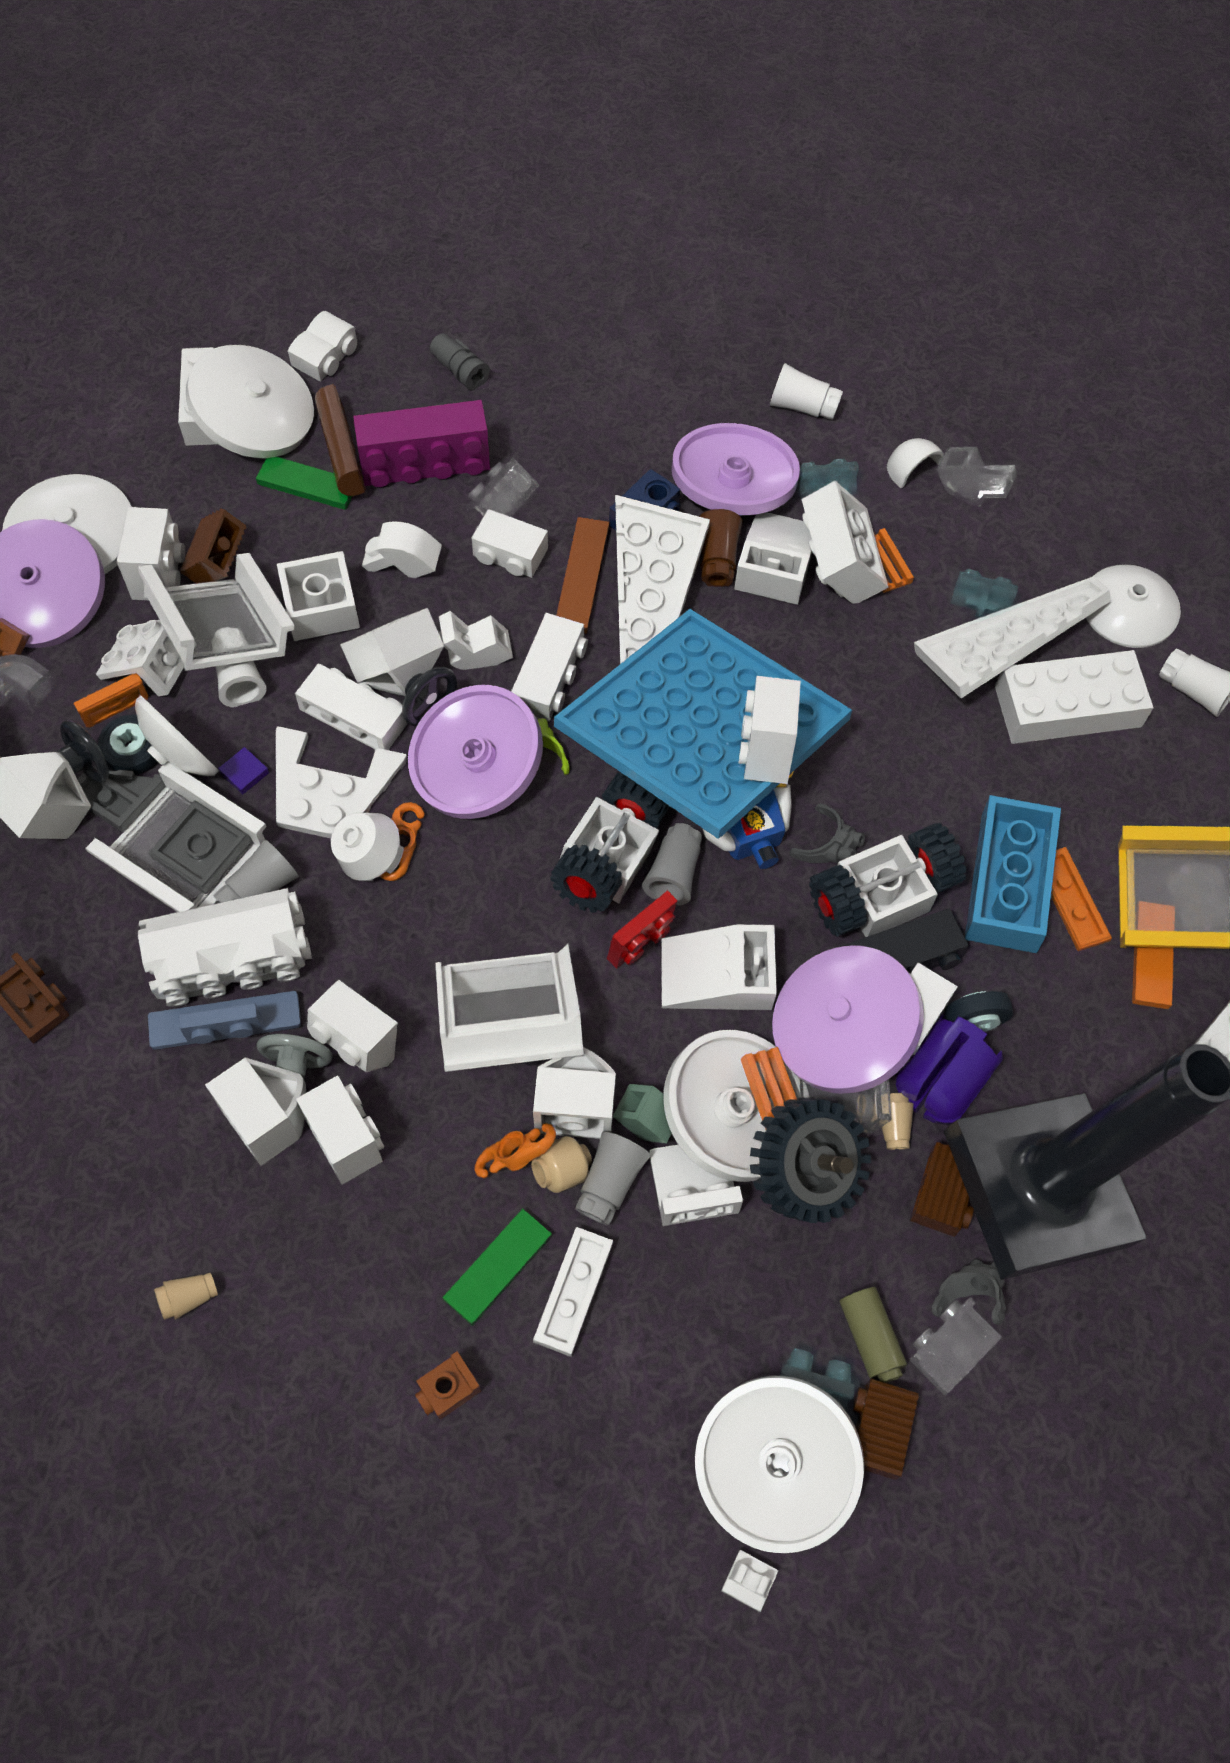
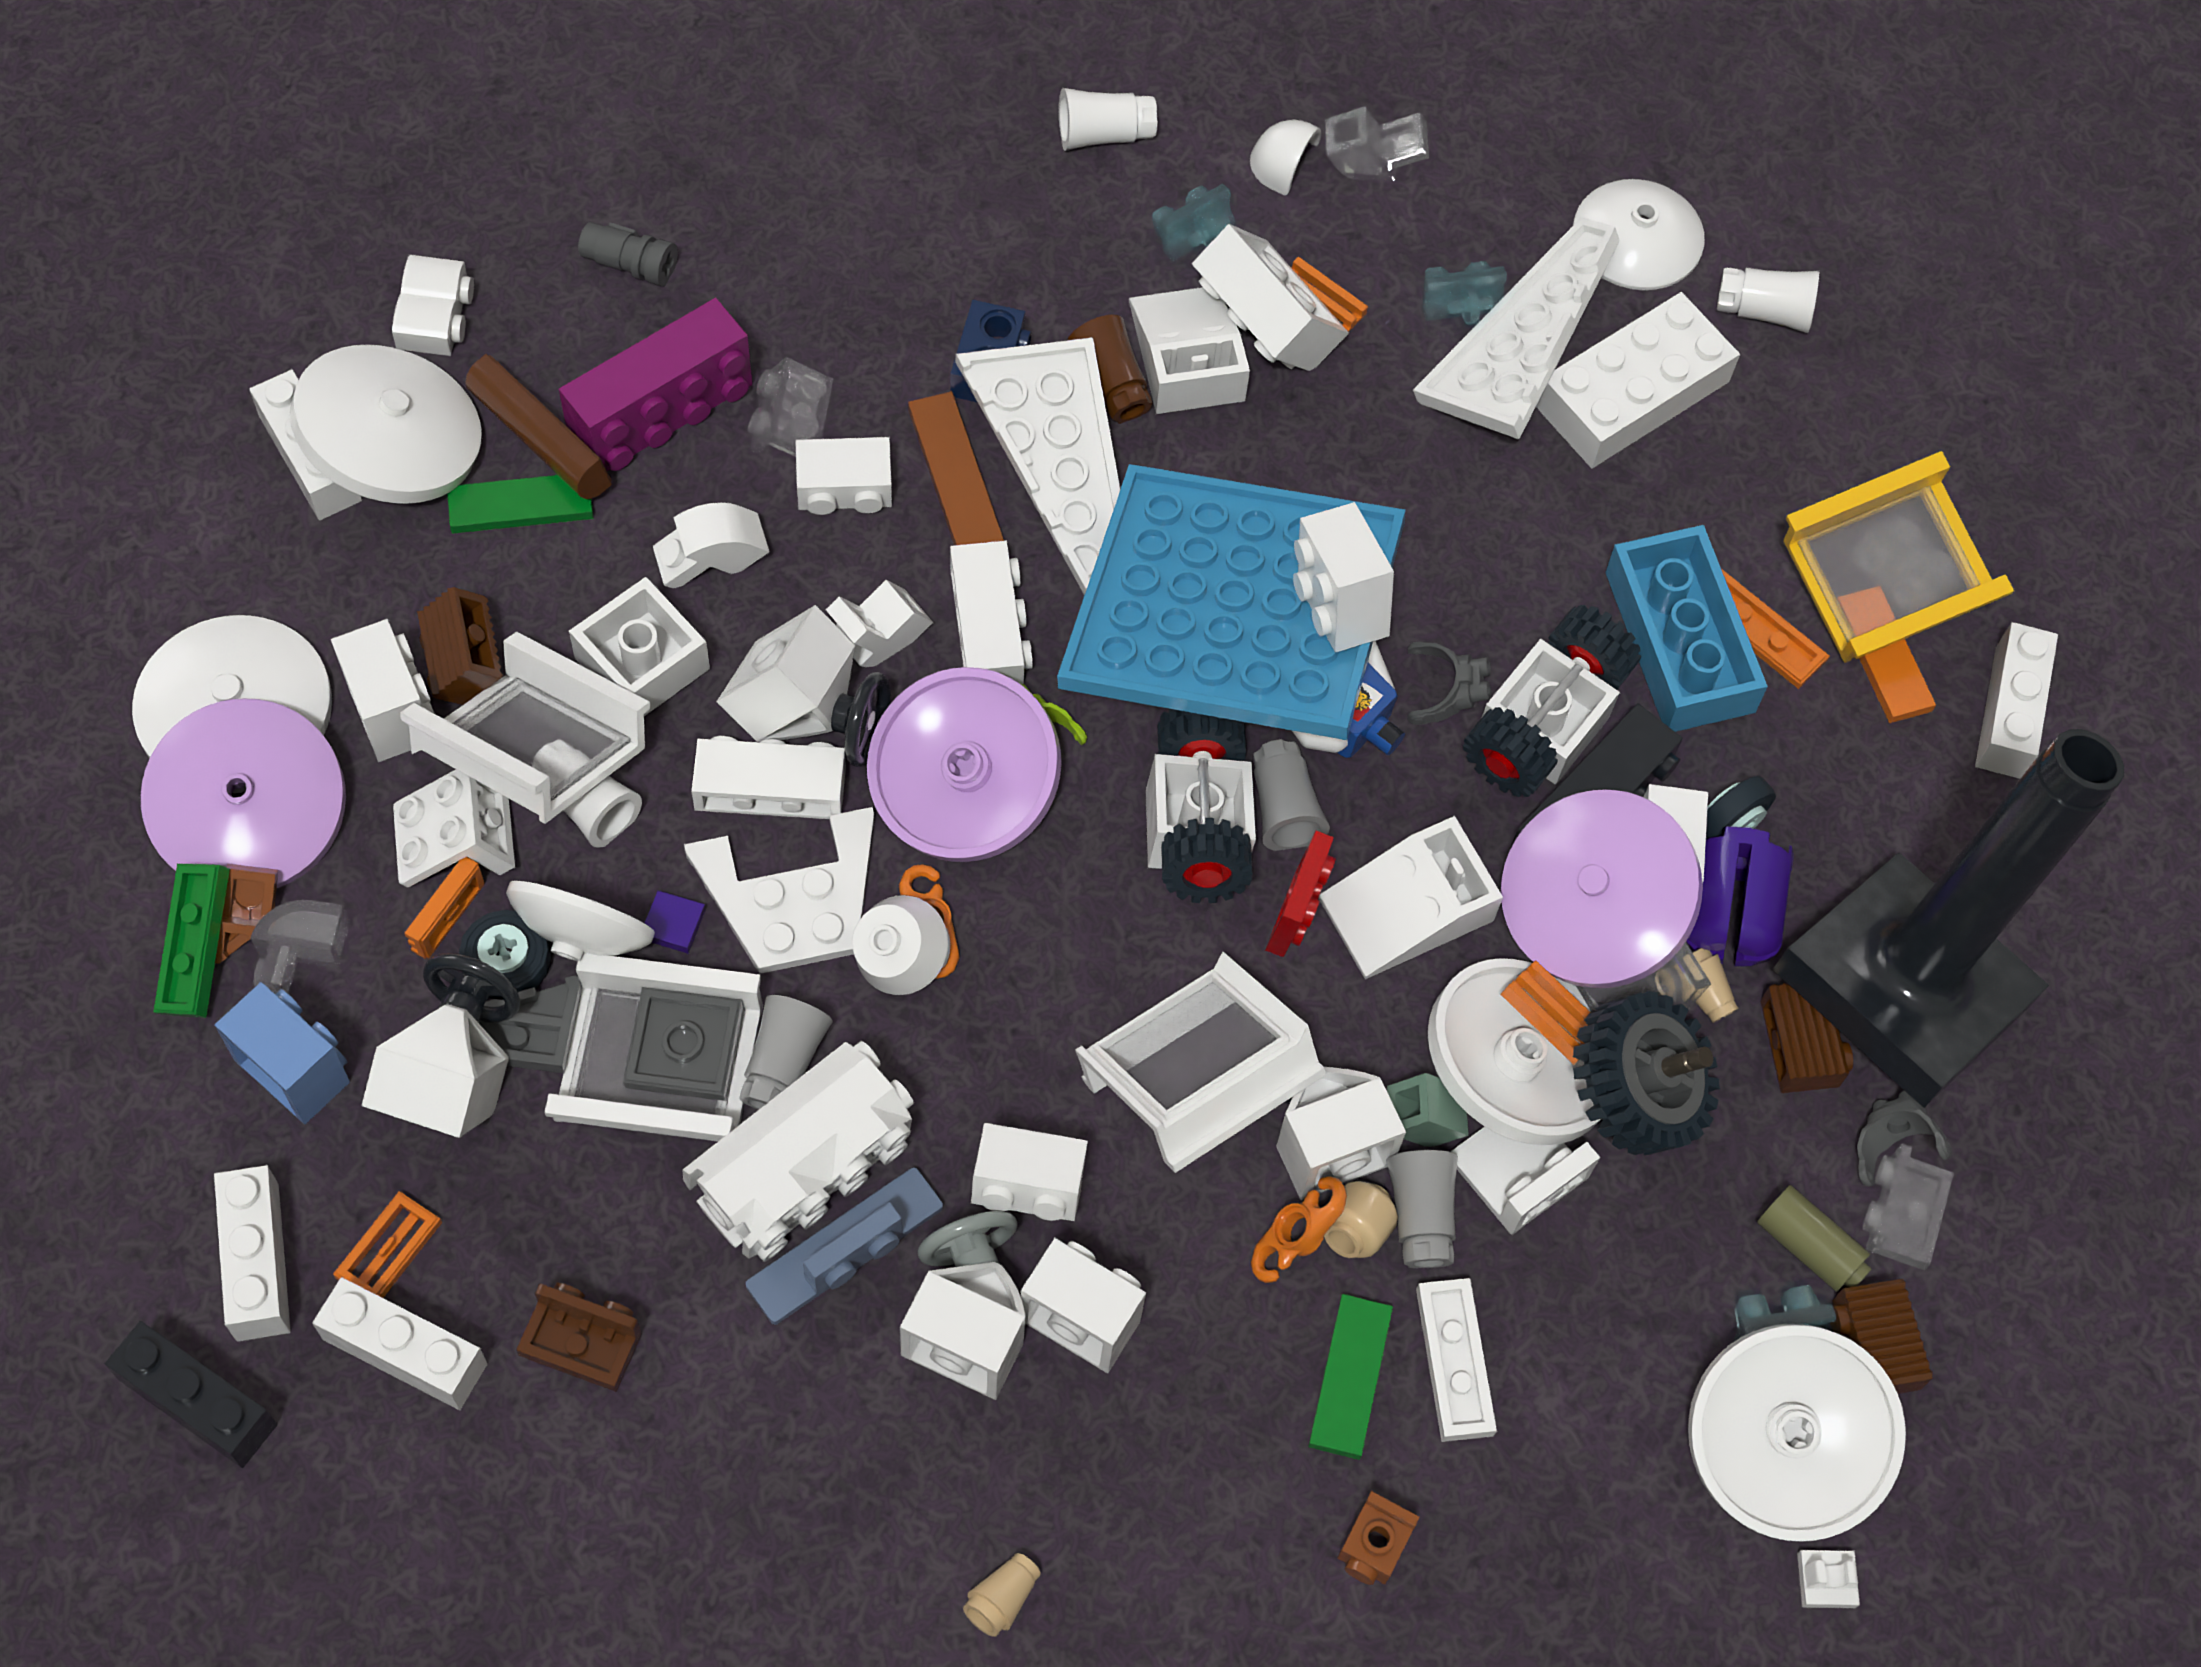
camera: 30 degrees left, 0 degrees up
(735, 468) = (1076, 255): lavender dish -> none

